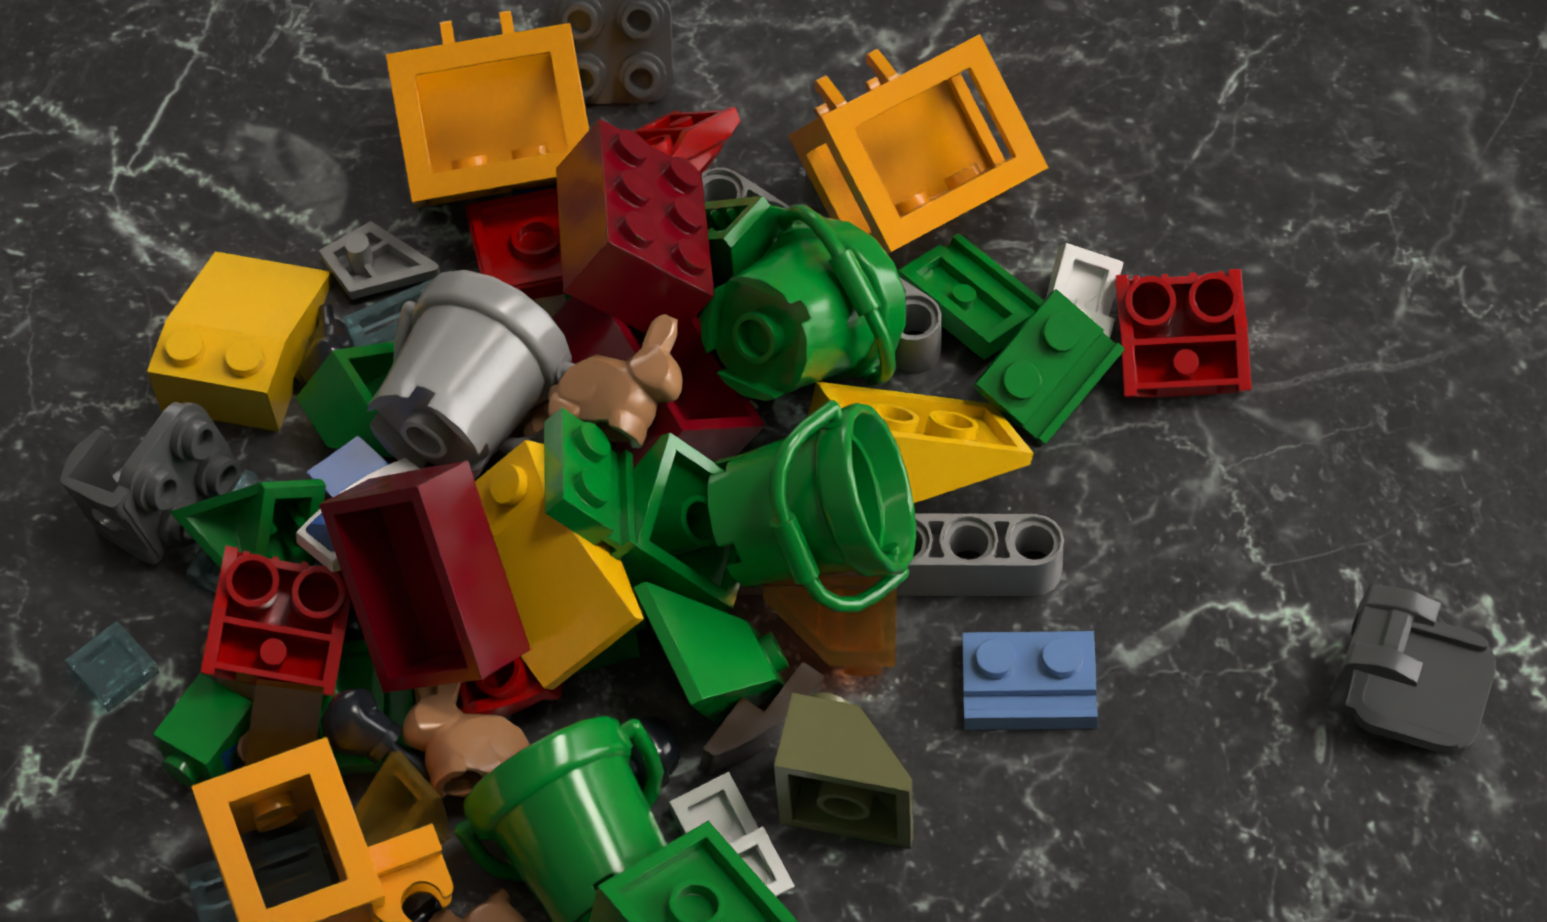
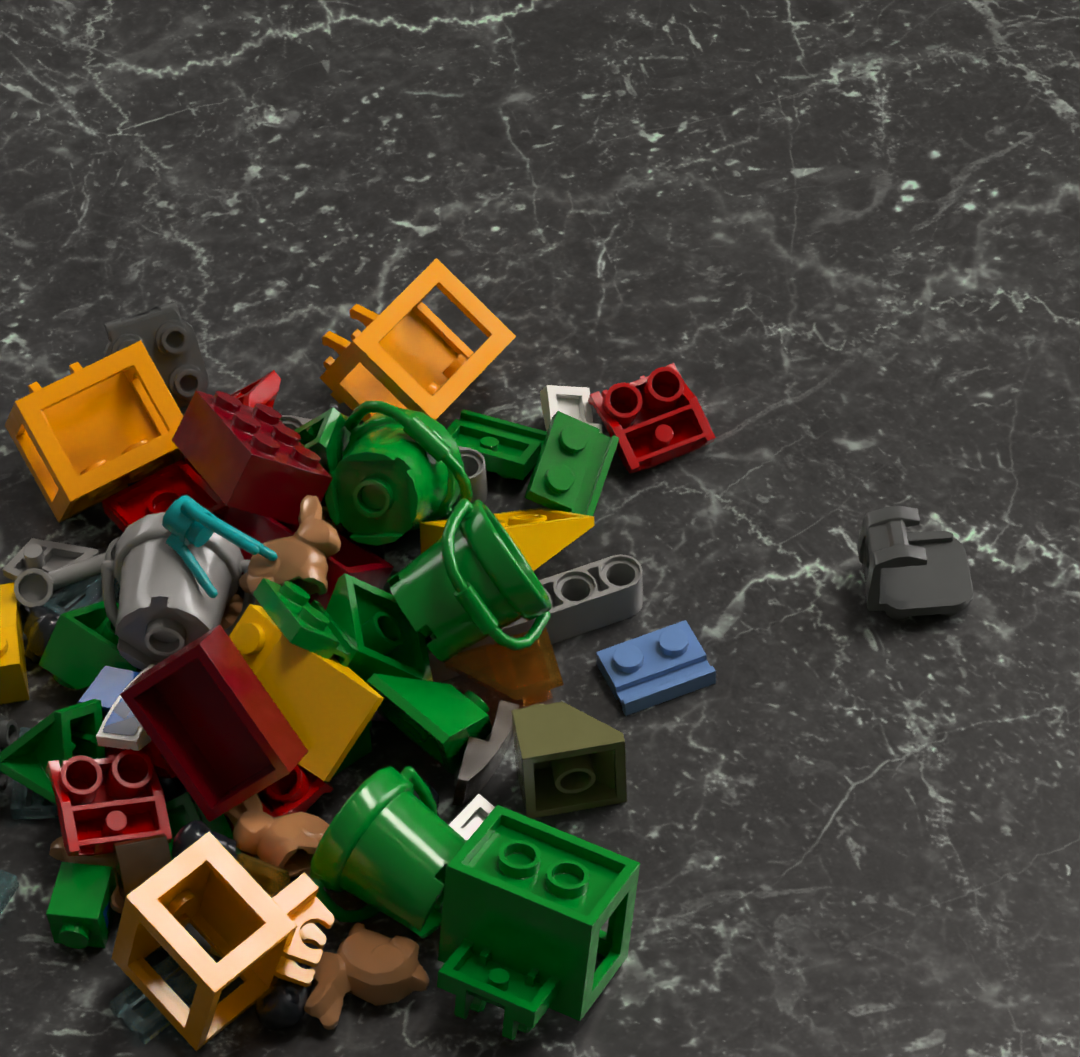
camera: 25 degrees left, 10 degrees down
(345, 289) = (36, 587): none -> light grey bar
(504, 311) = (195, 525): none -> teal plant

